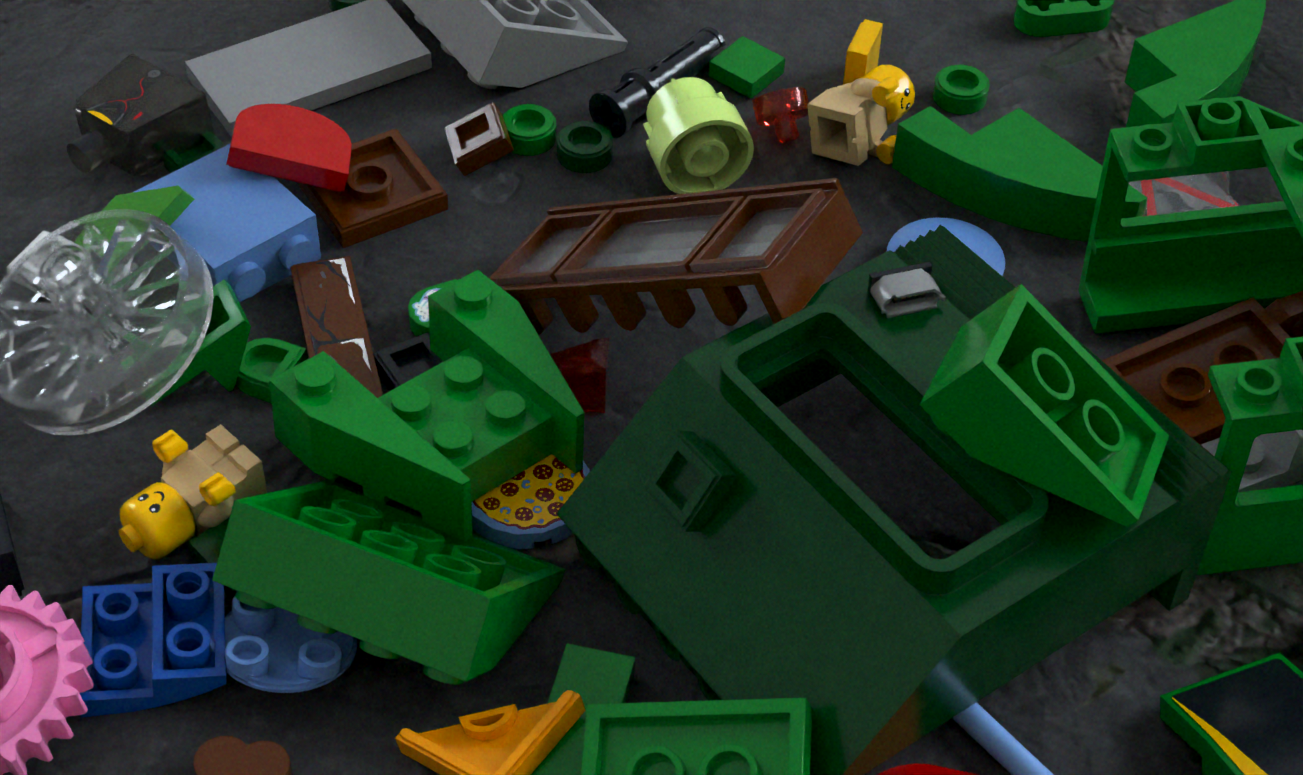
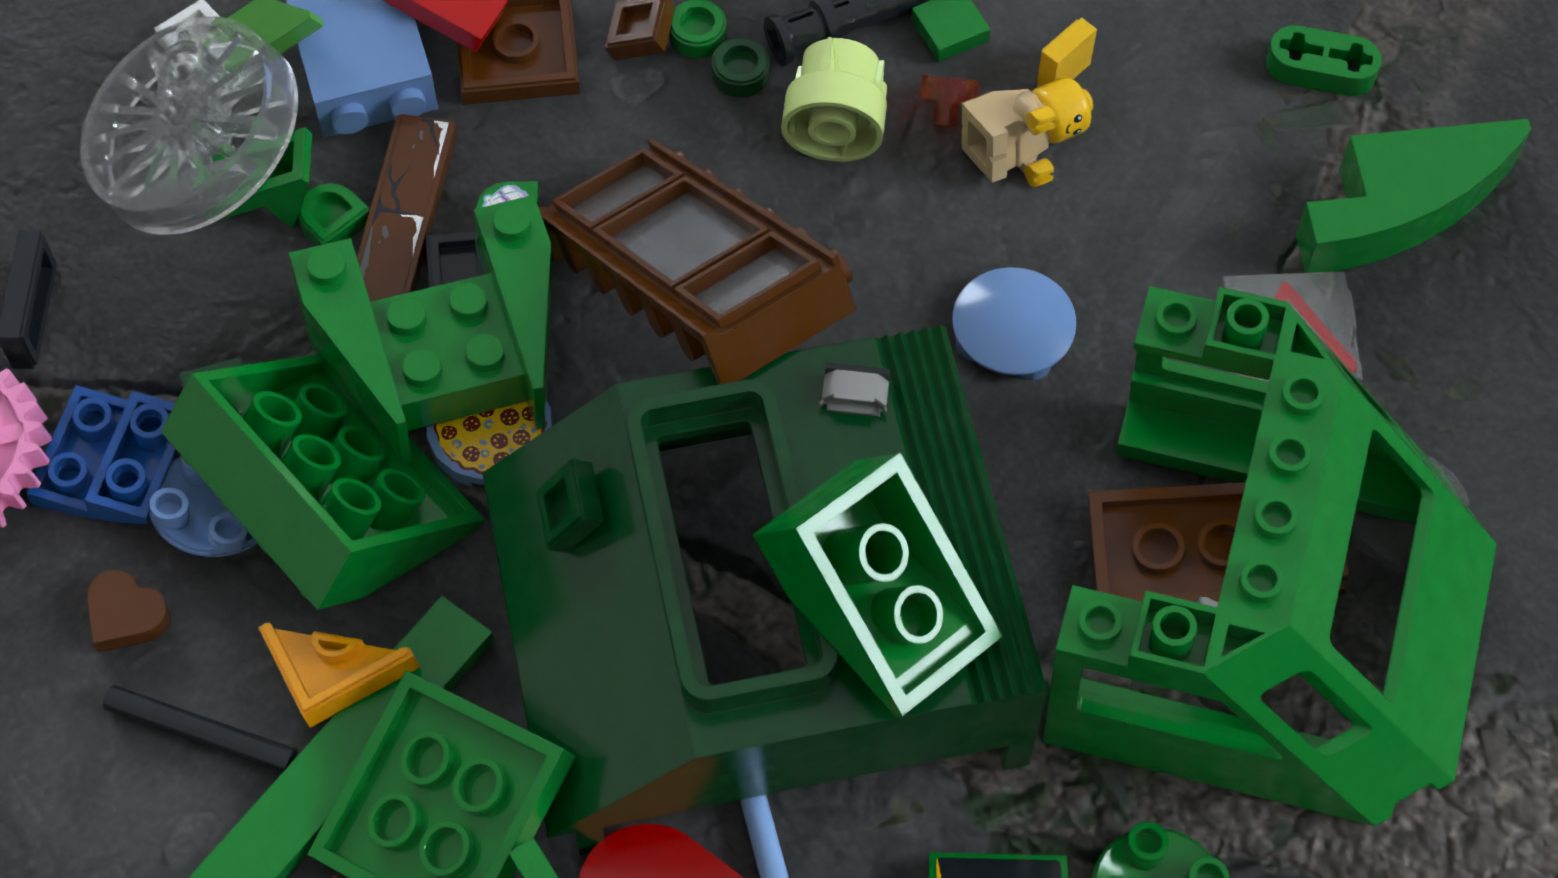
camera: 25 degrees right, 15 degrees up
(193, 491) = (207, 330): piece -> none
(586, 372) = (591, 330): clear red slope -> none
(961, 89) = (1154, 124): green tile -> none
(1006, 172) = (1123, 237): green slope -> none

